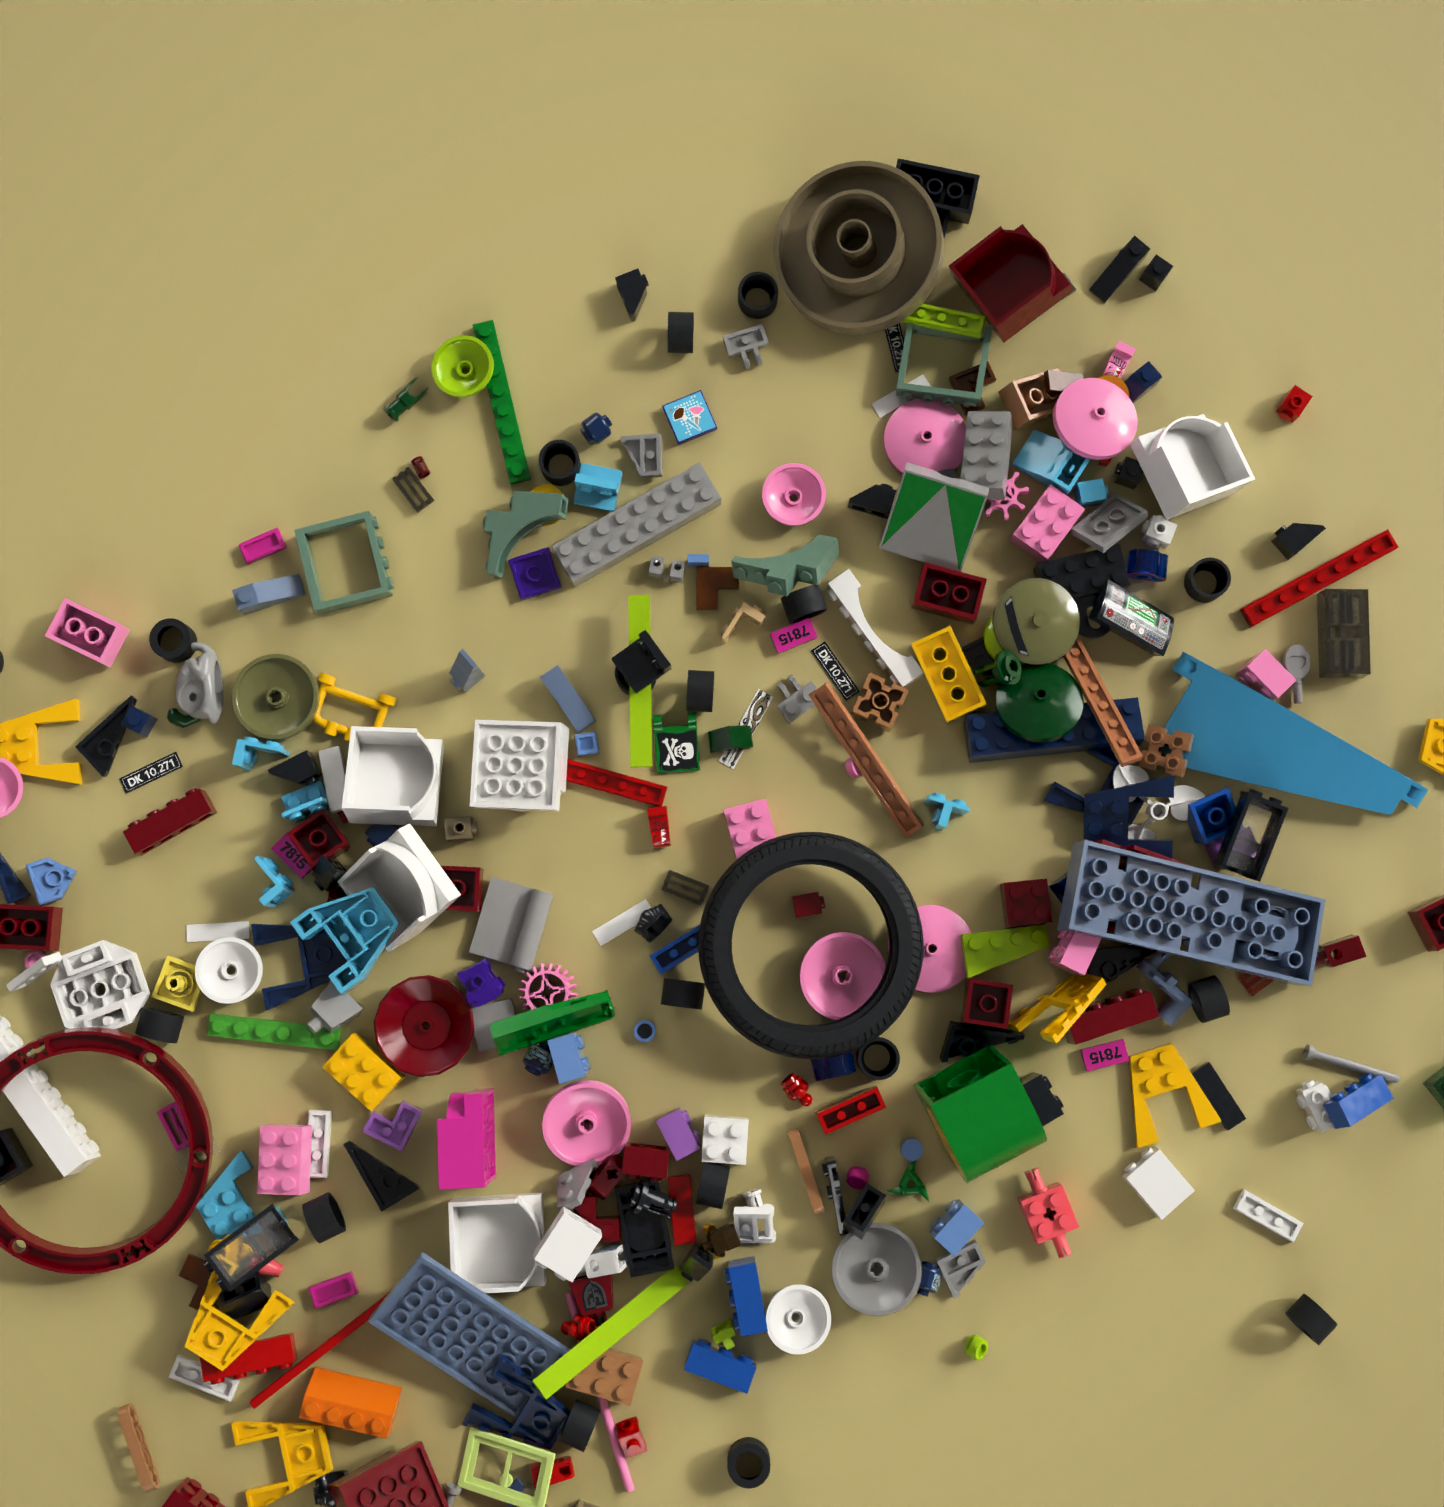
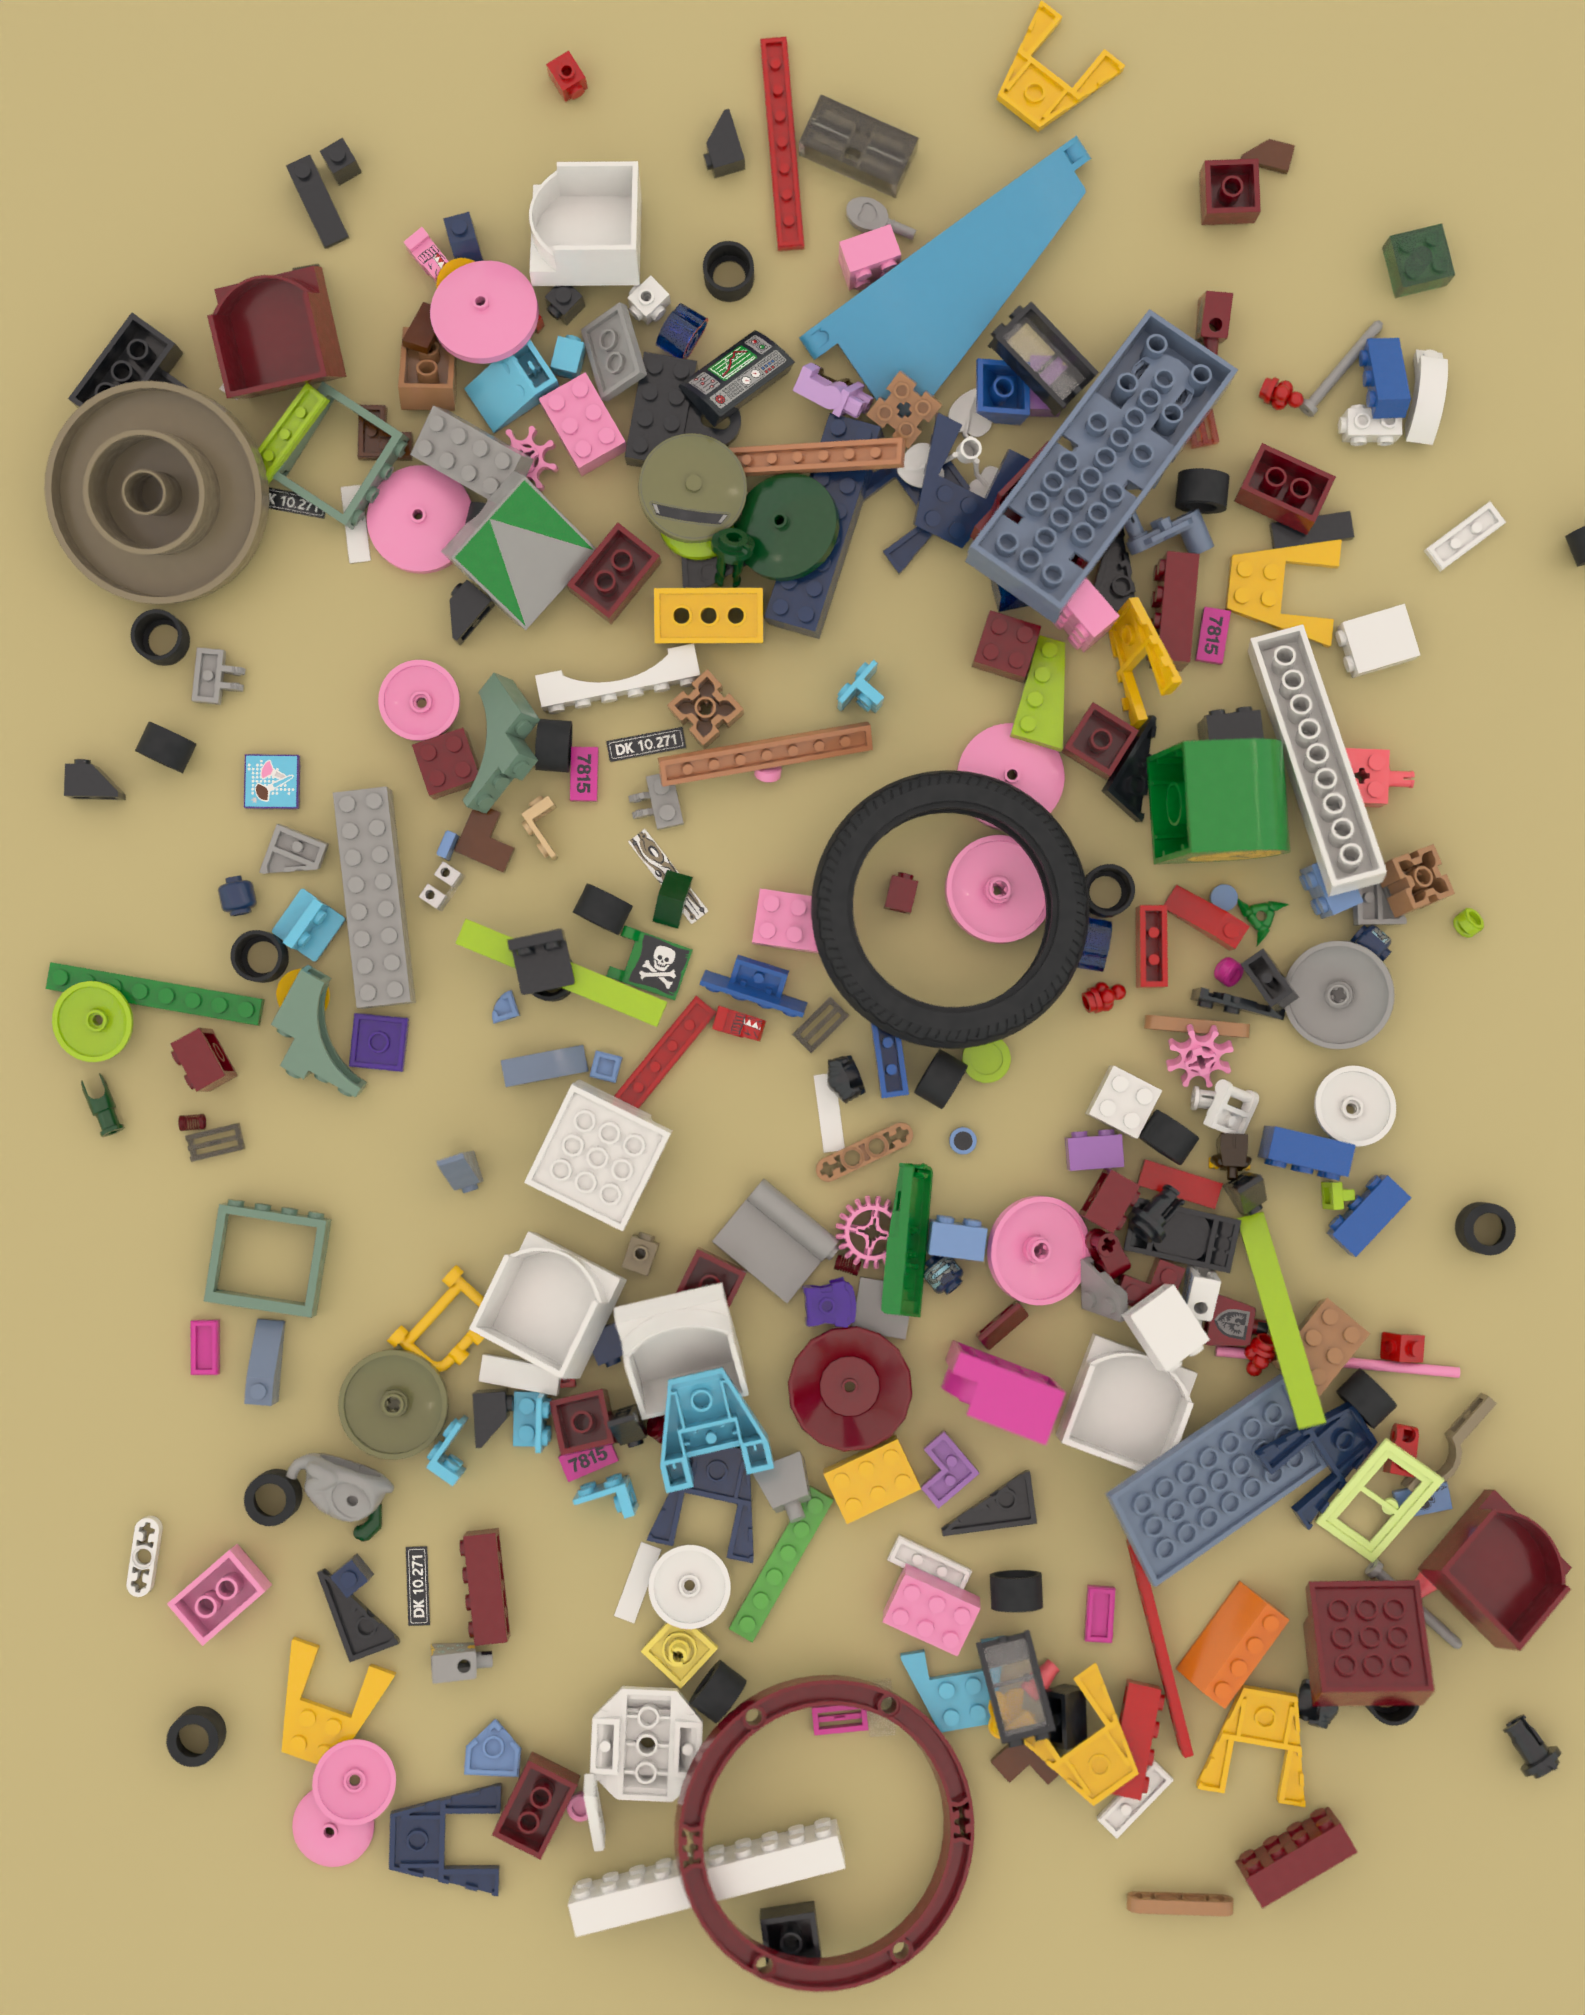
camera: 65 degrees left, 5 degrees up
(102, 817) = (447, 1658): none -> light grey torso
(107, 558) = (148, 1576): none -> white beam
(467, 455) = (203, 1060): none -> dark red brick
(515, 979) = (838, 1266): none -> dark red piece
(519, 1120) = (1002, 1325): none -> dark red slope
(598, 653) = (505, 1008): none -> medium blue tile
(605, 960) = (866, 1155): none -> medium nougat beam
(695, 827) = (756, 983): none -> blue bracket
(711, 1024) = (987, 1062): none -> lime piece
(757, 533) = (447, 763): none -> dark red brick
(792, 1180) = (1198, 1046): none -> bright pink gear
(890, 1142) = (1206, 918): none -> red slope
(988, 1290) = (1415, 881): none -> medium nougat brick
(1044, 1174) = (1316, 761): none -> white brick
(1152, 691) = (832, 394): none -> lavender hips
(1239, 1060) = (1284, 489): none -> dark red brick
(1308, 1026) = (1280, 394): none -> red piece
(1359, 1140) = (1428, 396): none -> white arch

